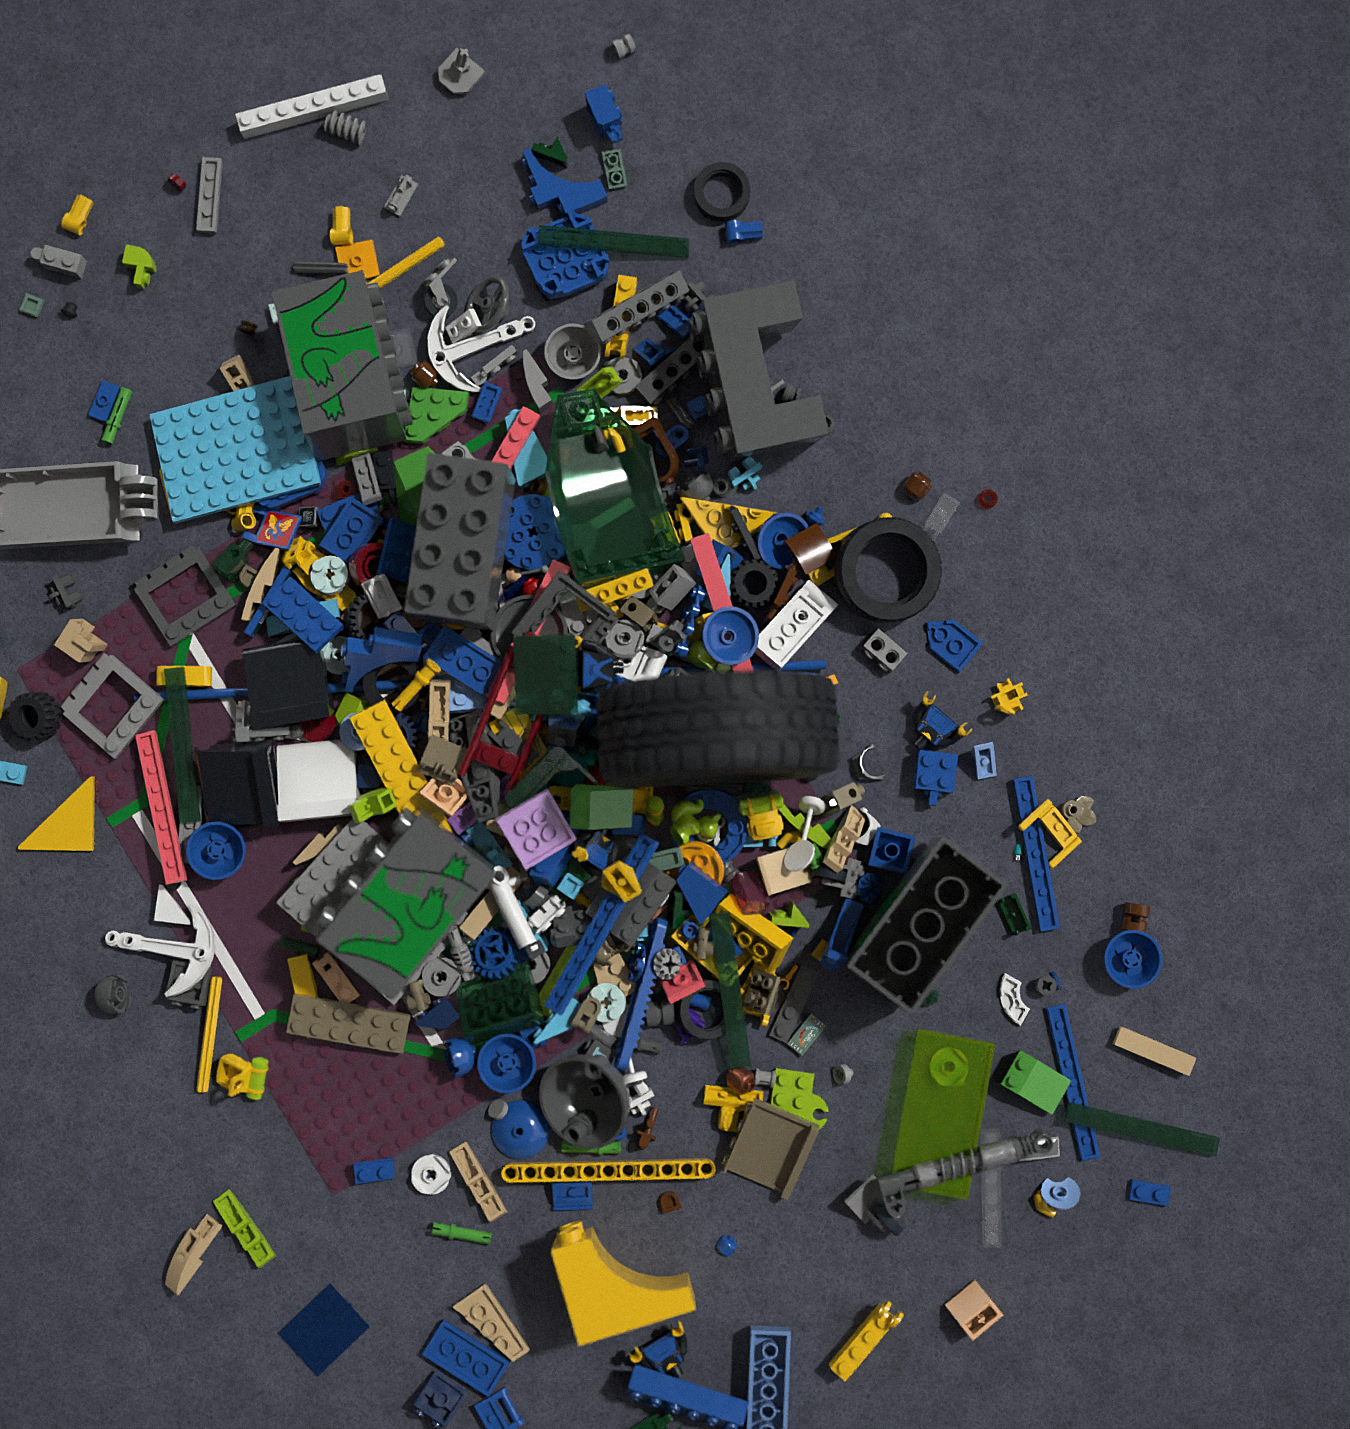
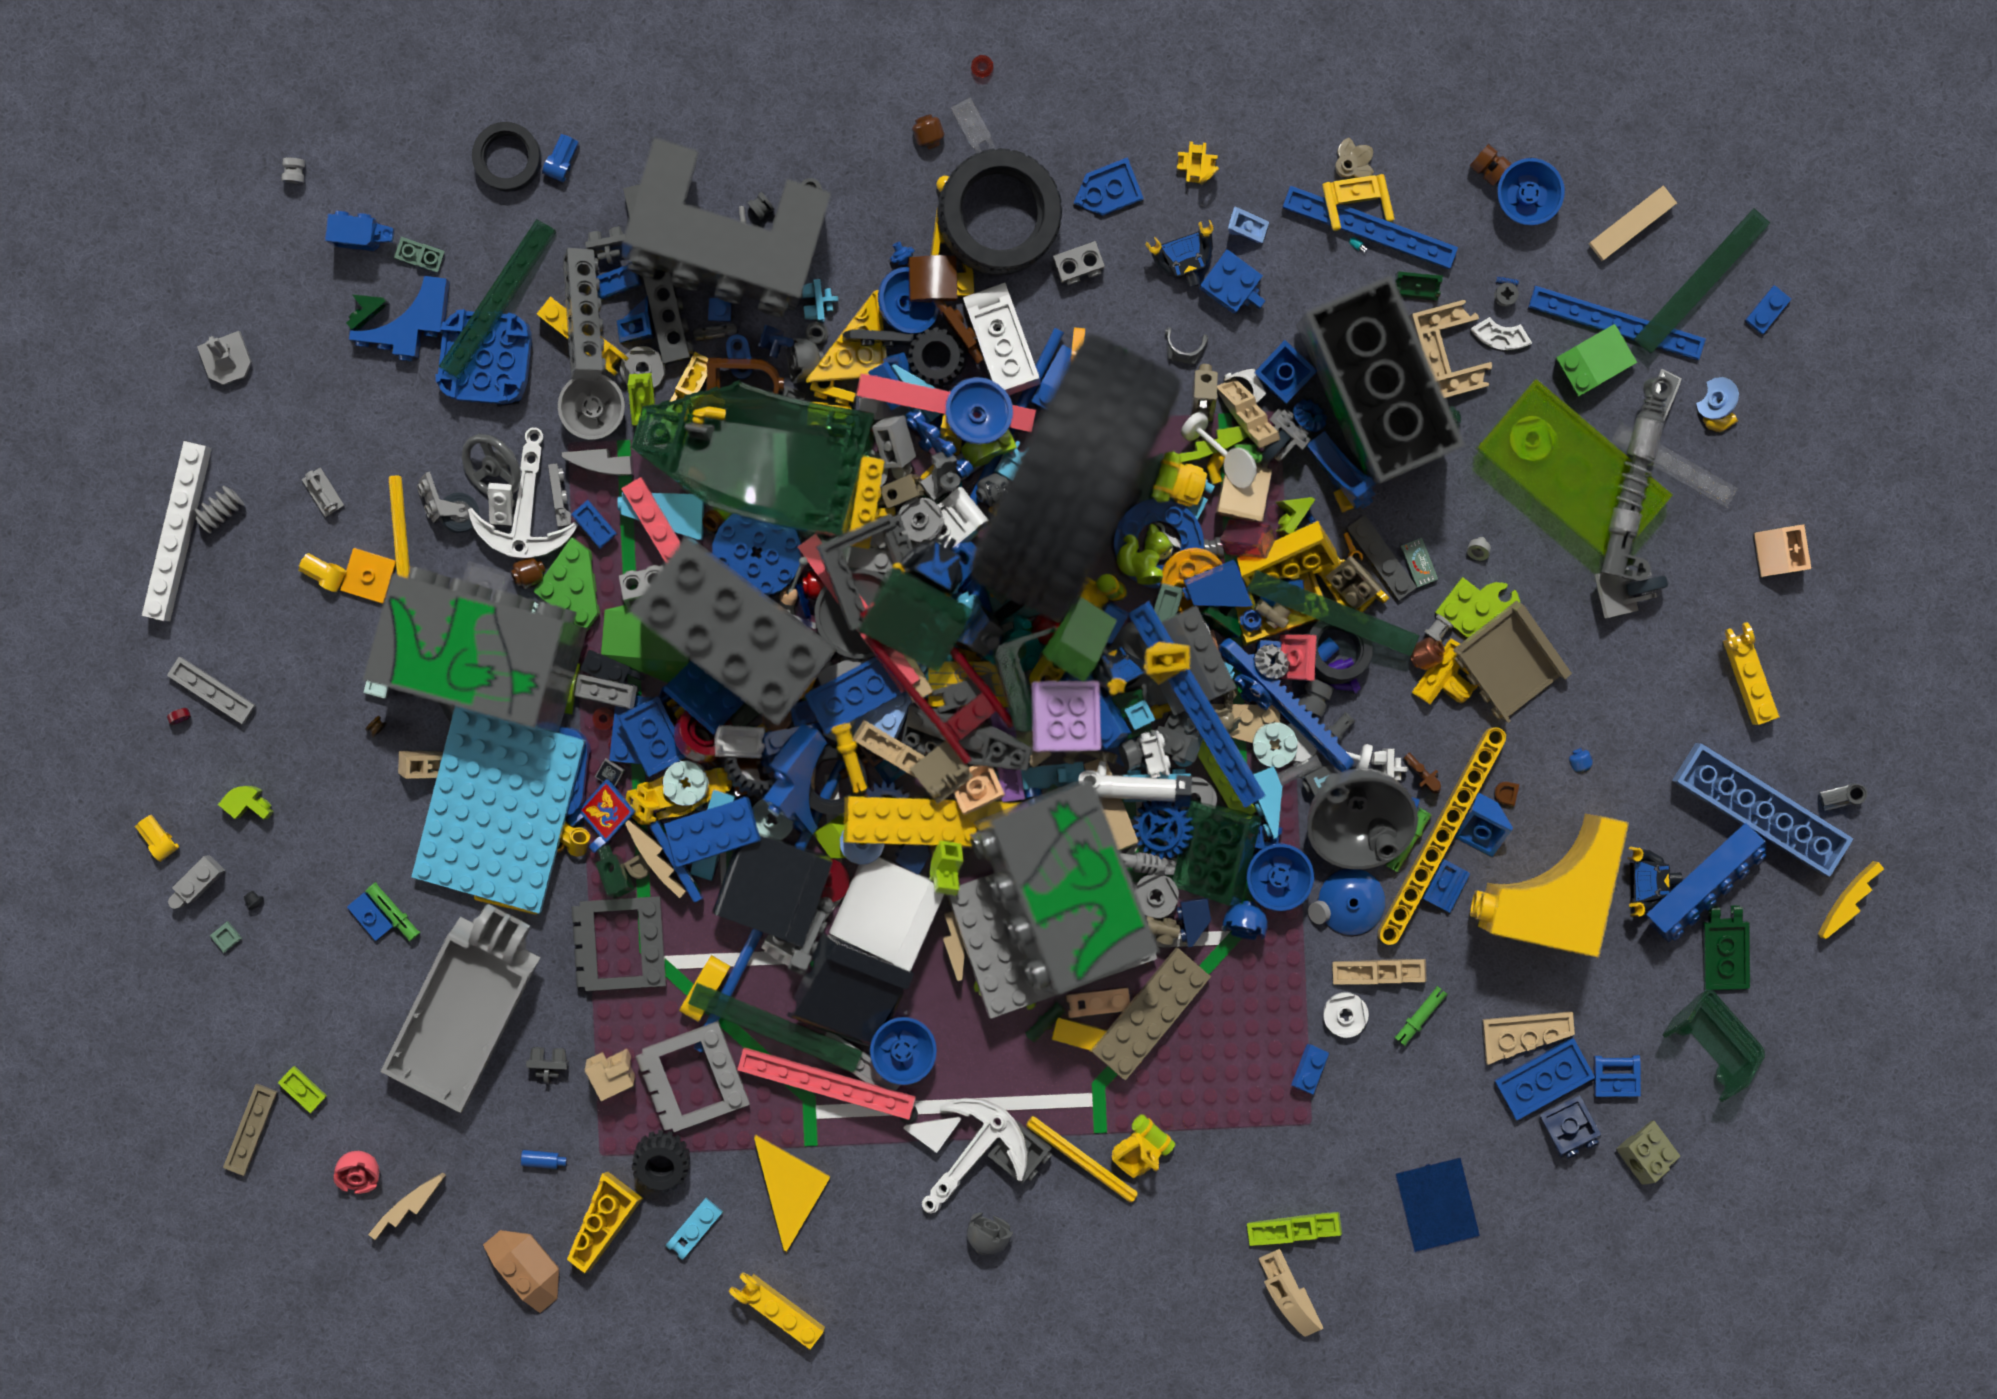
camera: 60 degrees left, 5 degrees up
(321, 267) = (354, 617): dark grey axle -> none
(591, 1008) = (1274, 762): dark tan plate -> none
(634, 1199) = (1484, 825): none -> blue slope
(985, 938) = (1427, 327): none -> tan wedge

